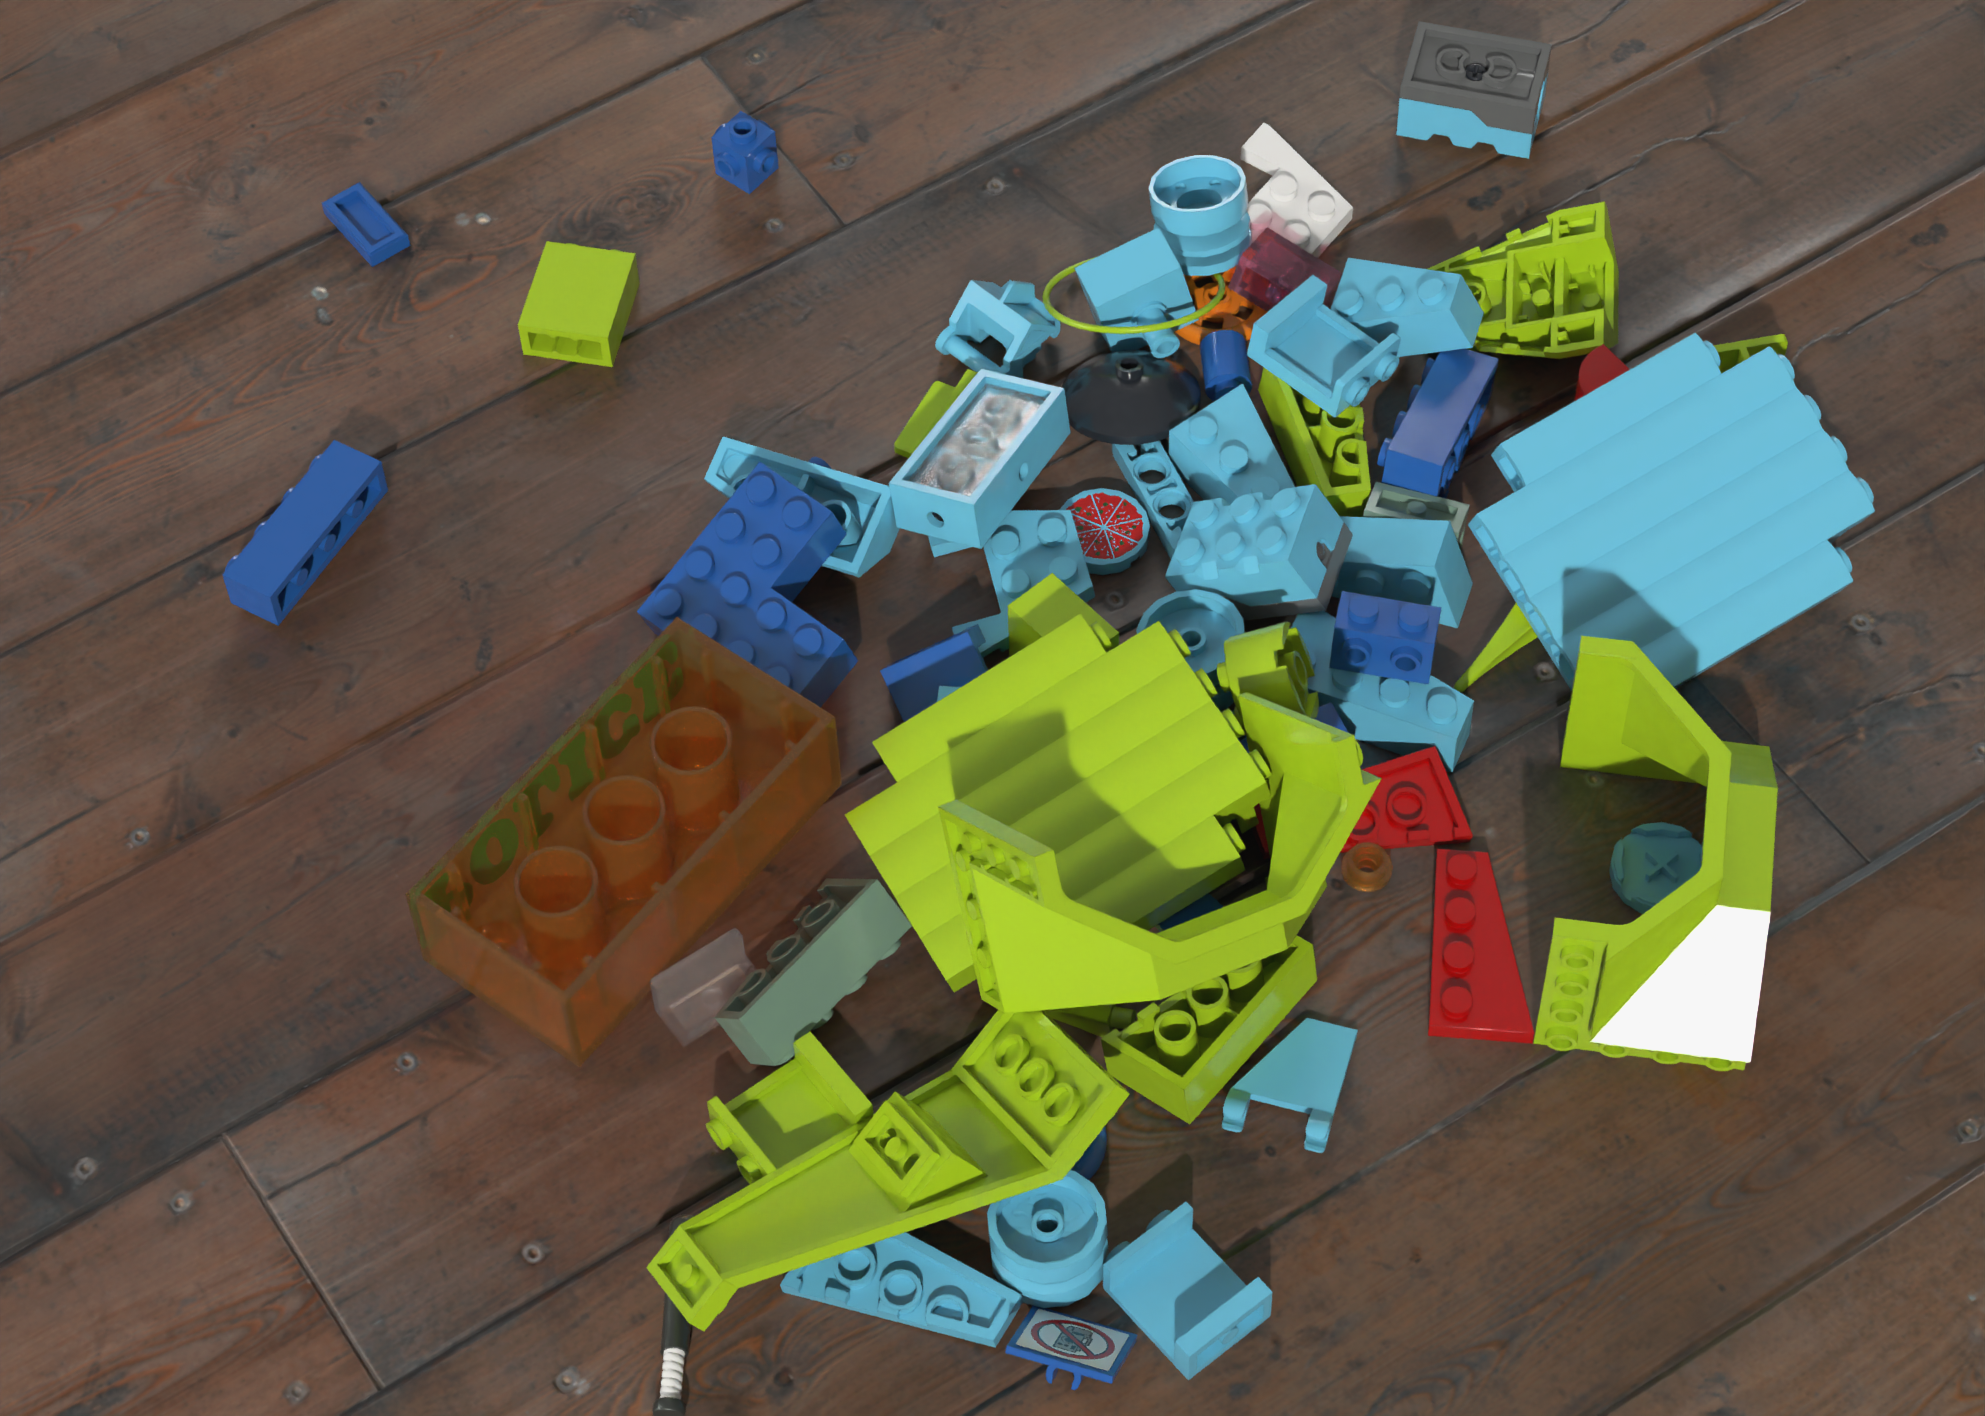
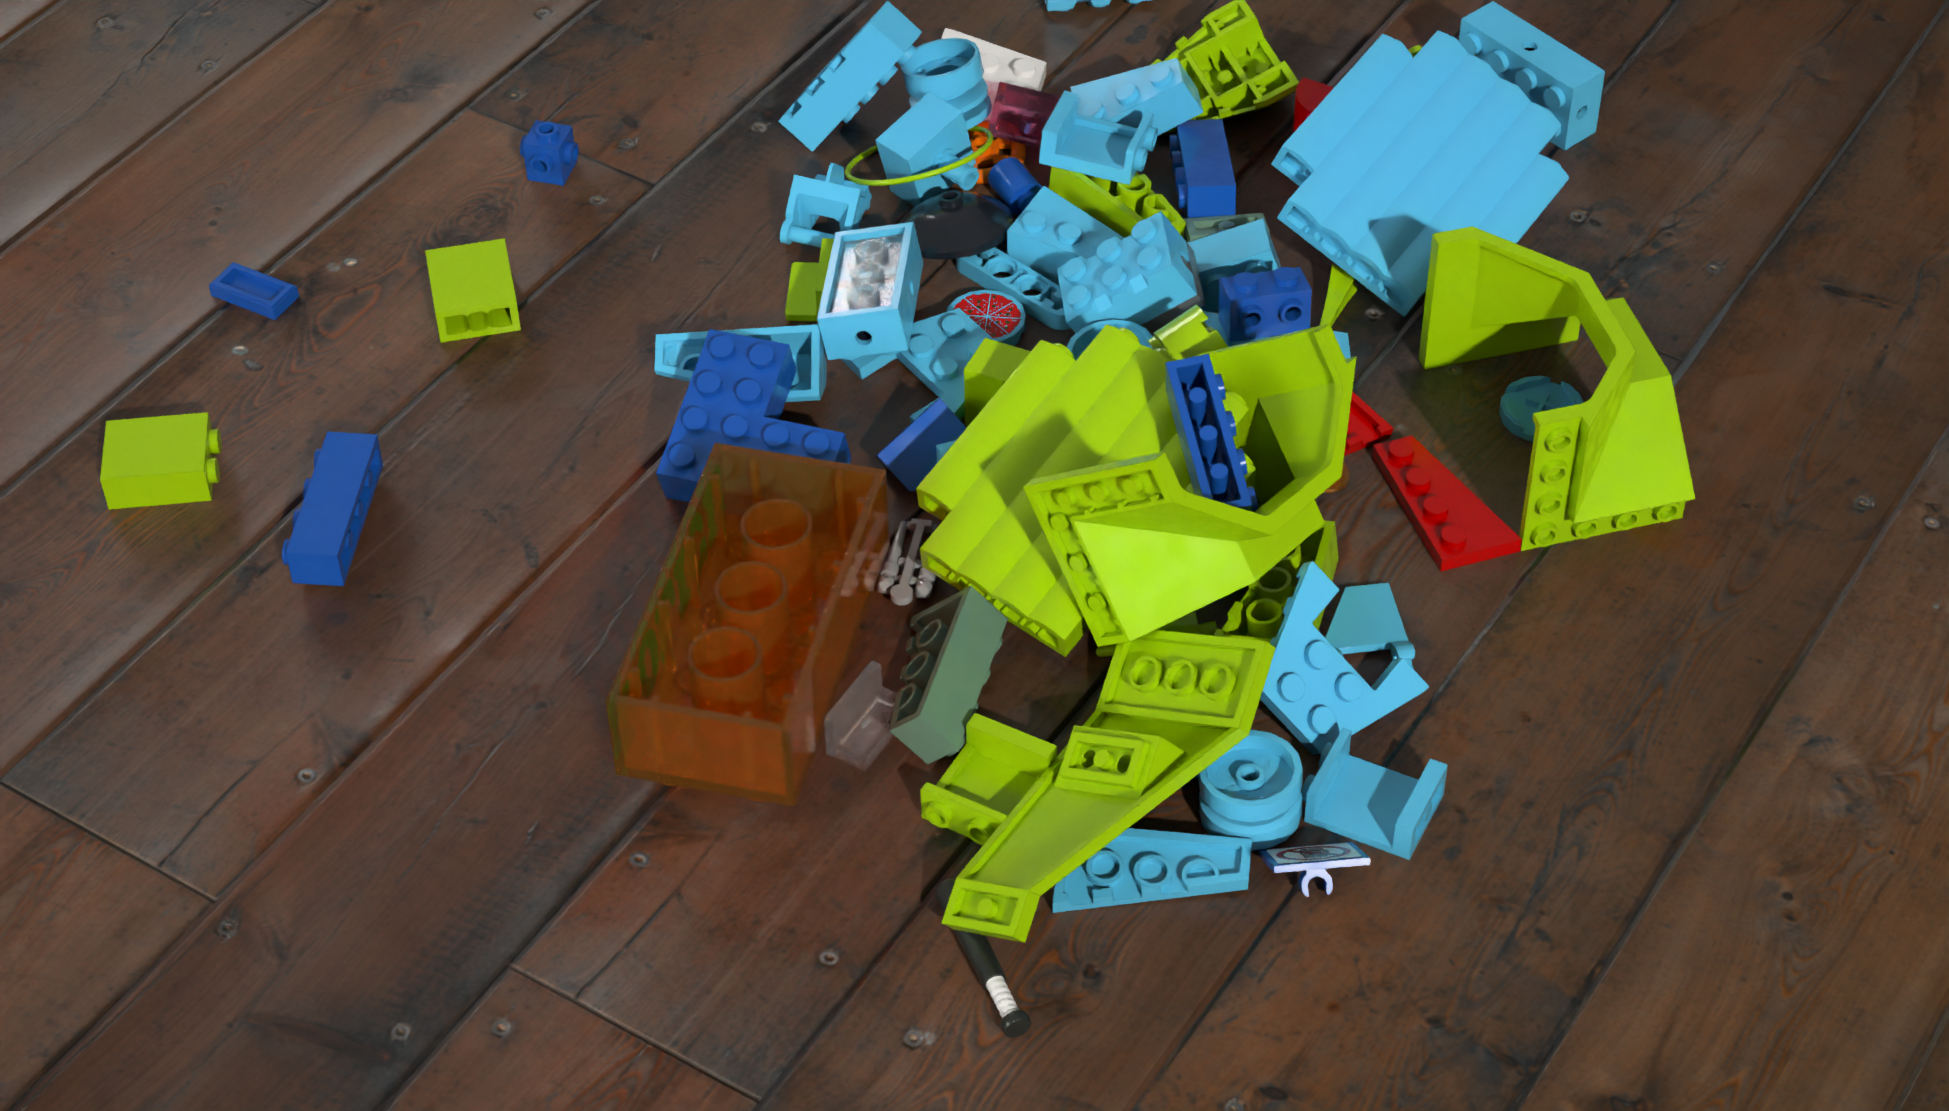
camera: 25 degrees left, 10 degrees down
(168, 408) = (160, 460): none -> lime brick
(825, 848) = (902, 593): none -> light grey piece
(1094, 173) = (852, 76): none -> medium azure wedge
(1183, 819) = (1207, 432): none -> blue brick
(1184, 1139) = (1314, 685): none -> medium azure wing
(1894, 419) = (1540, 67): none -> medium azure brick

